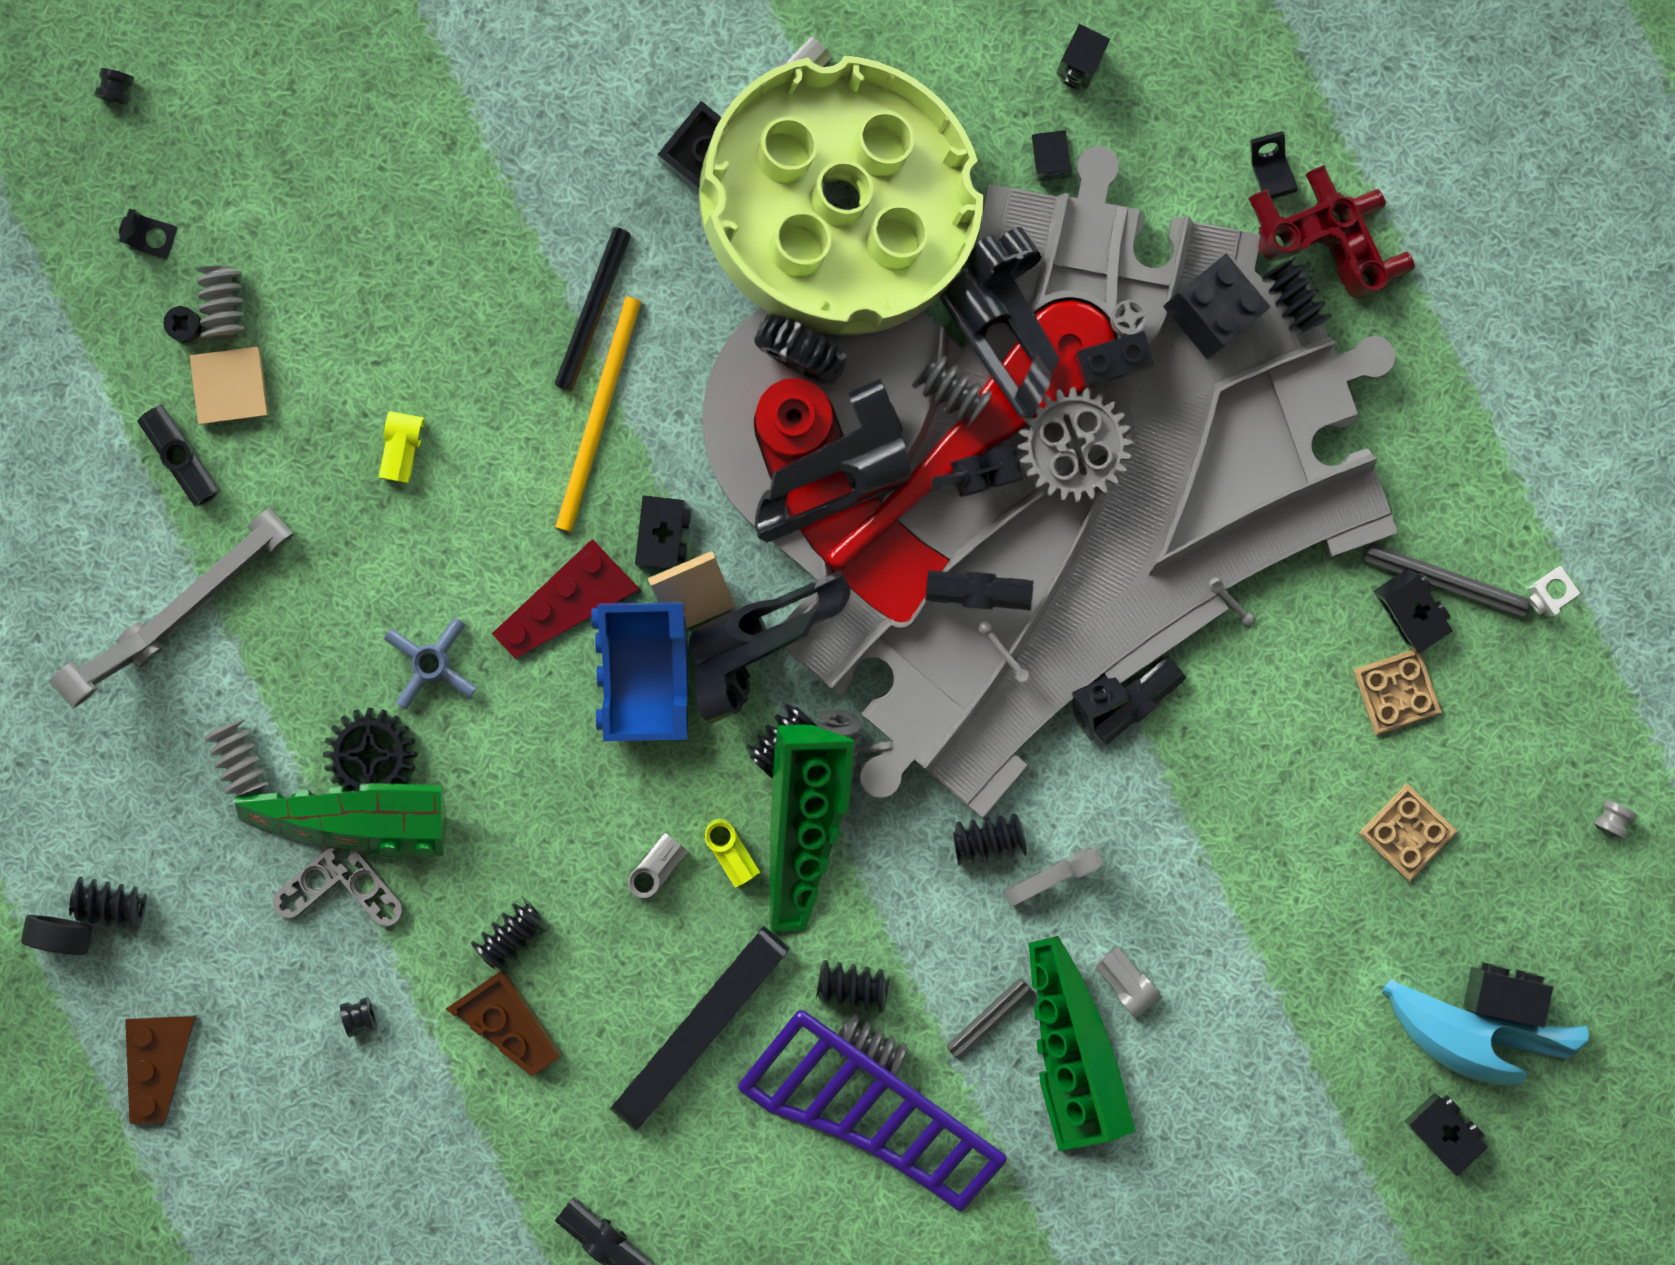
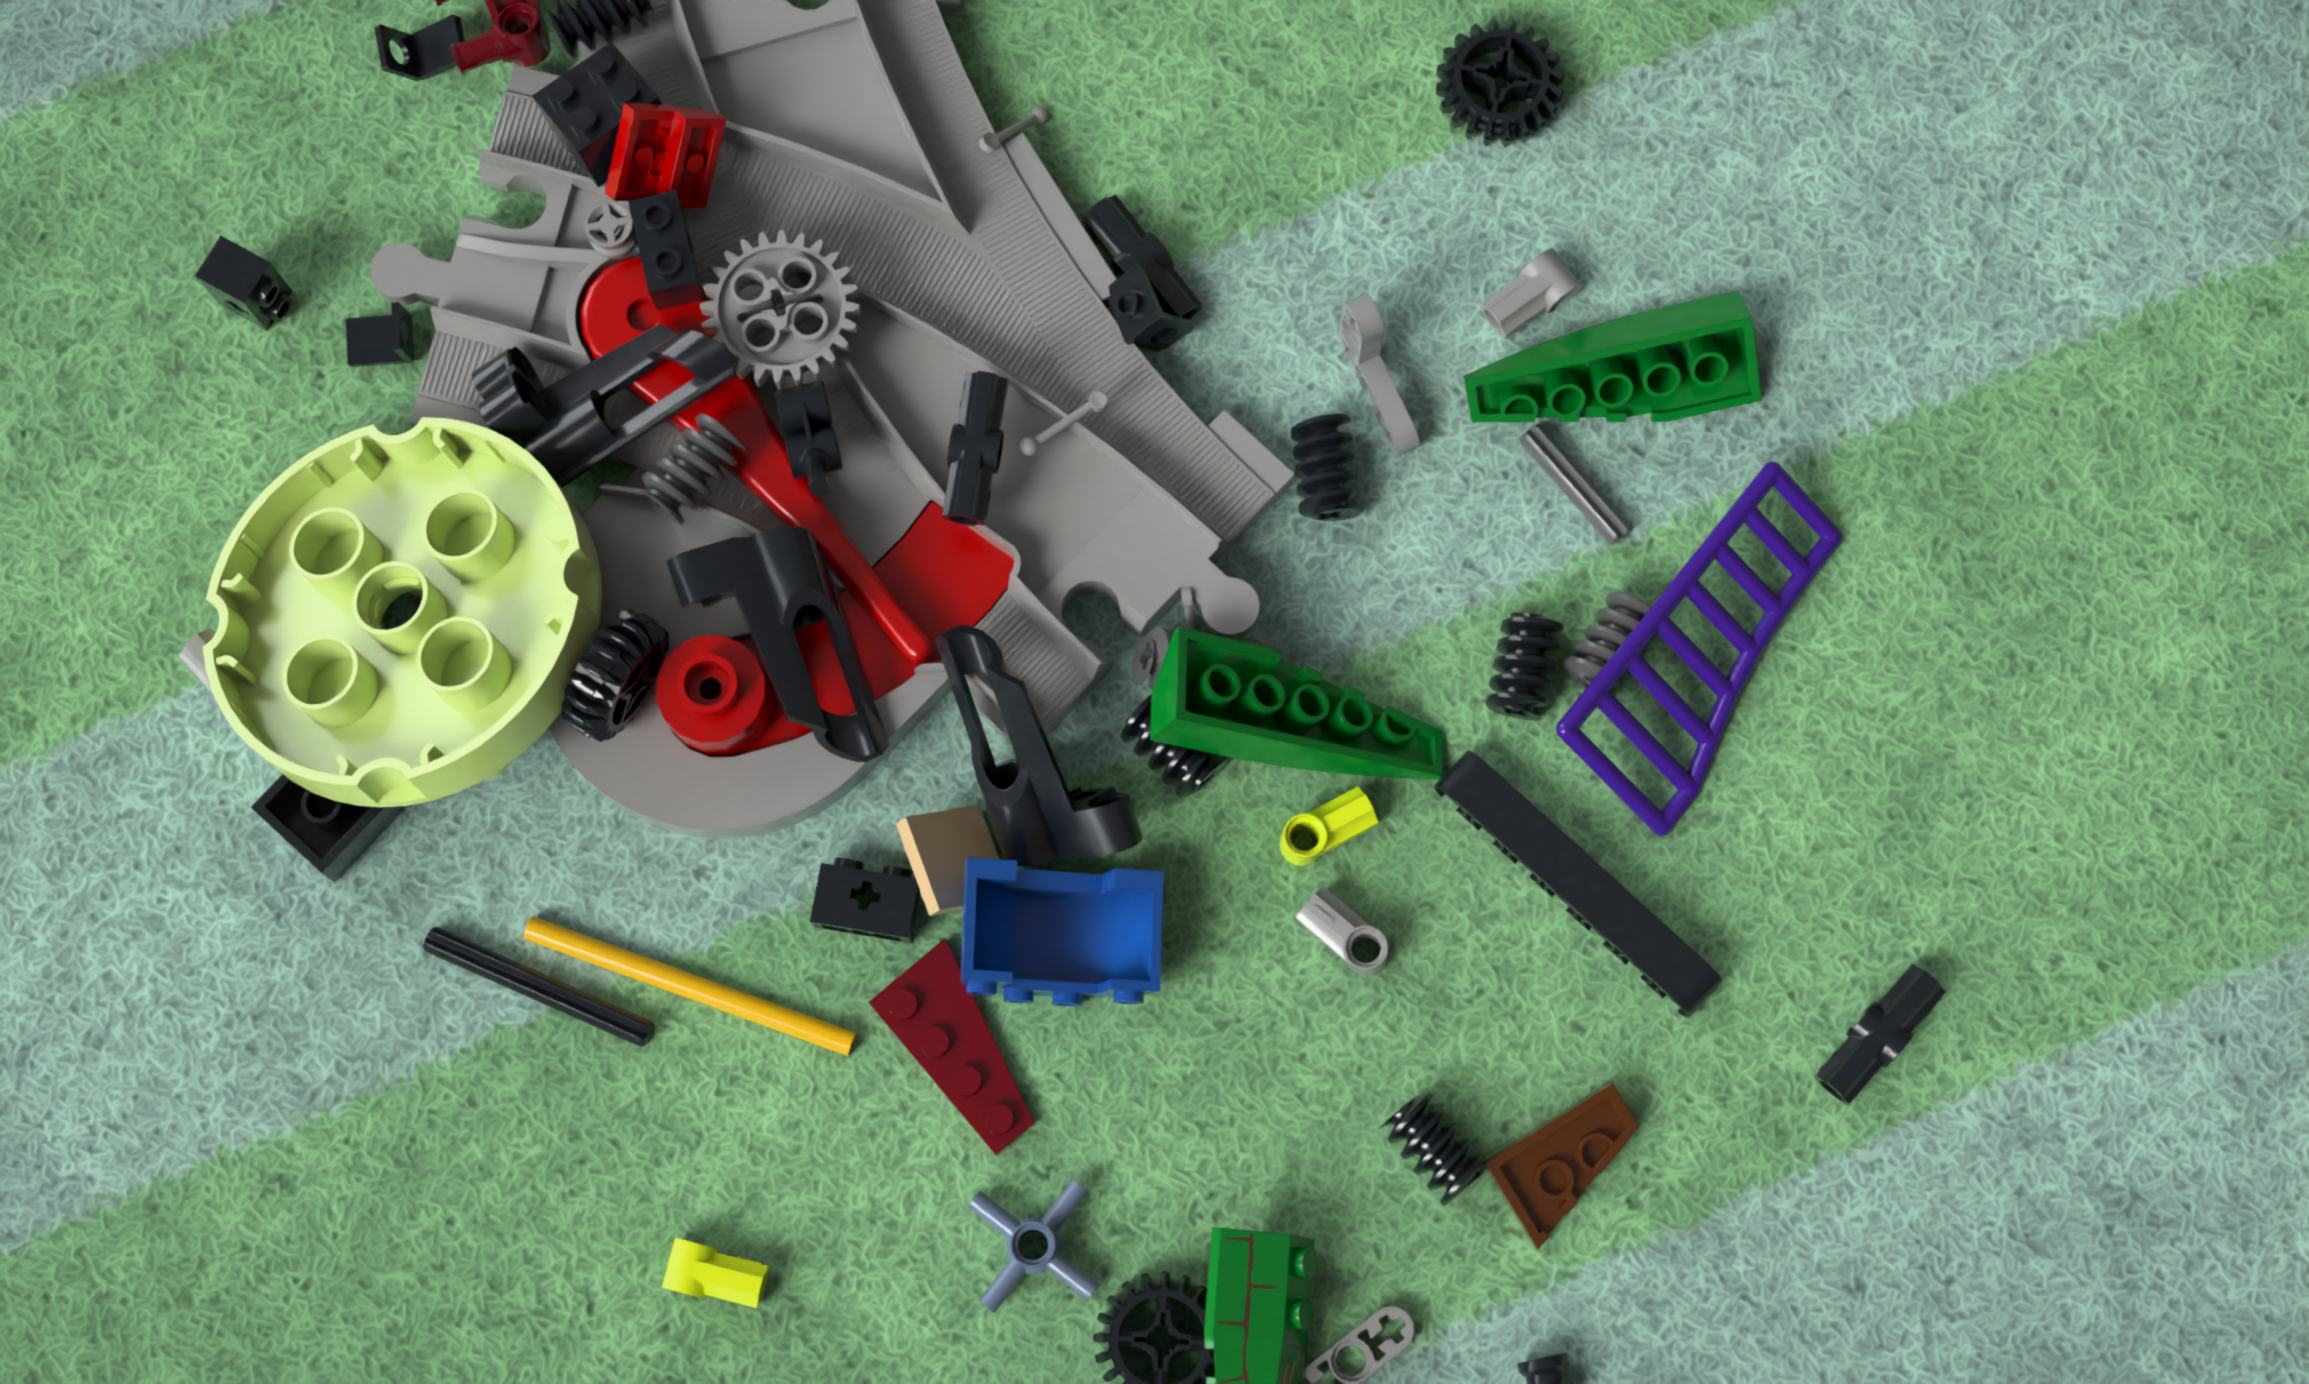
camera: 85 degrees left, 10 degrees down
(1186, 353) = (665, 151): none -> red slope
(1289, 938) = (1518, 84): none -> black gear

